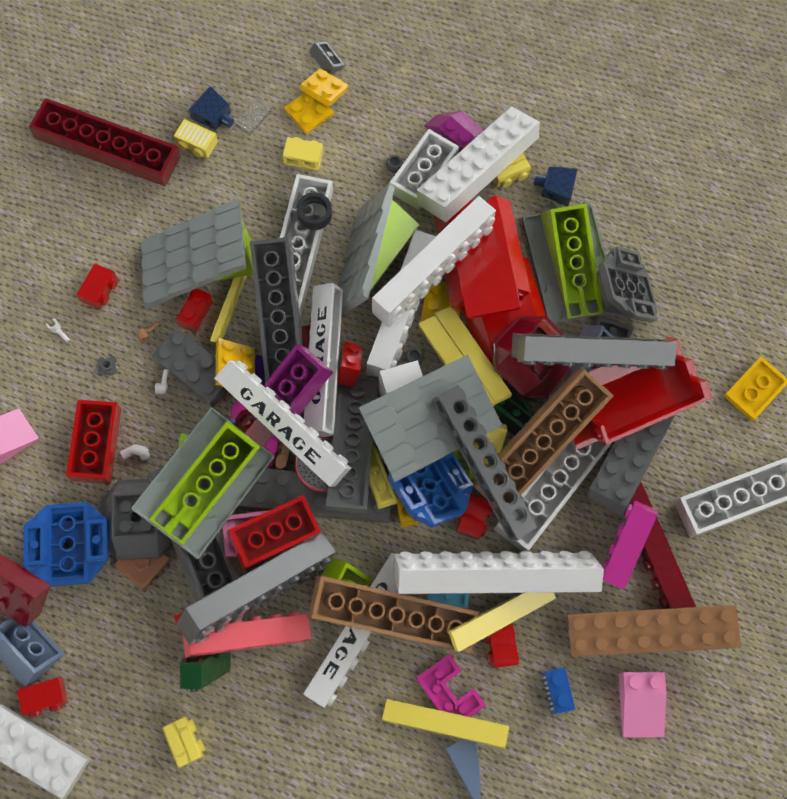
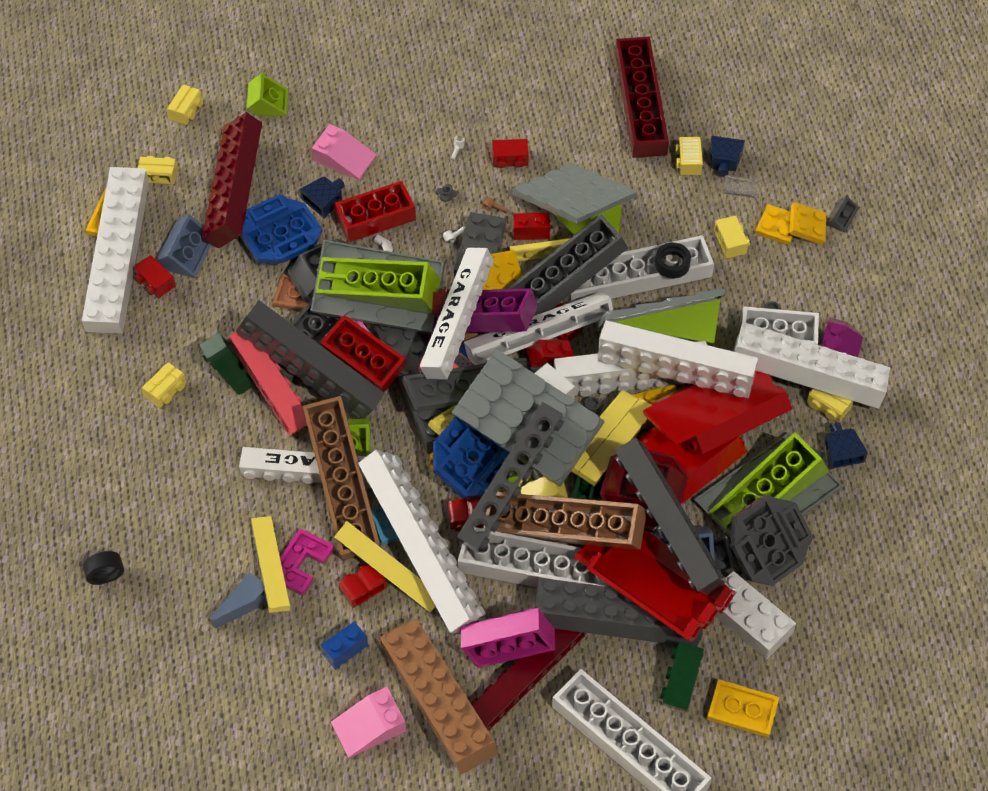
camera: 70 degrees right, 15 degrees down
(41, 482) = (322, 195): none -> dark blue torso
(695, 332) = (755, 618): none -> white brick
(717, 422) = (682, 676): none -> dark green wedge

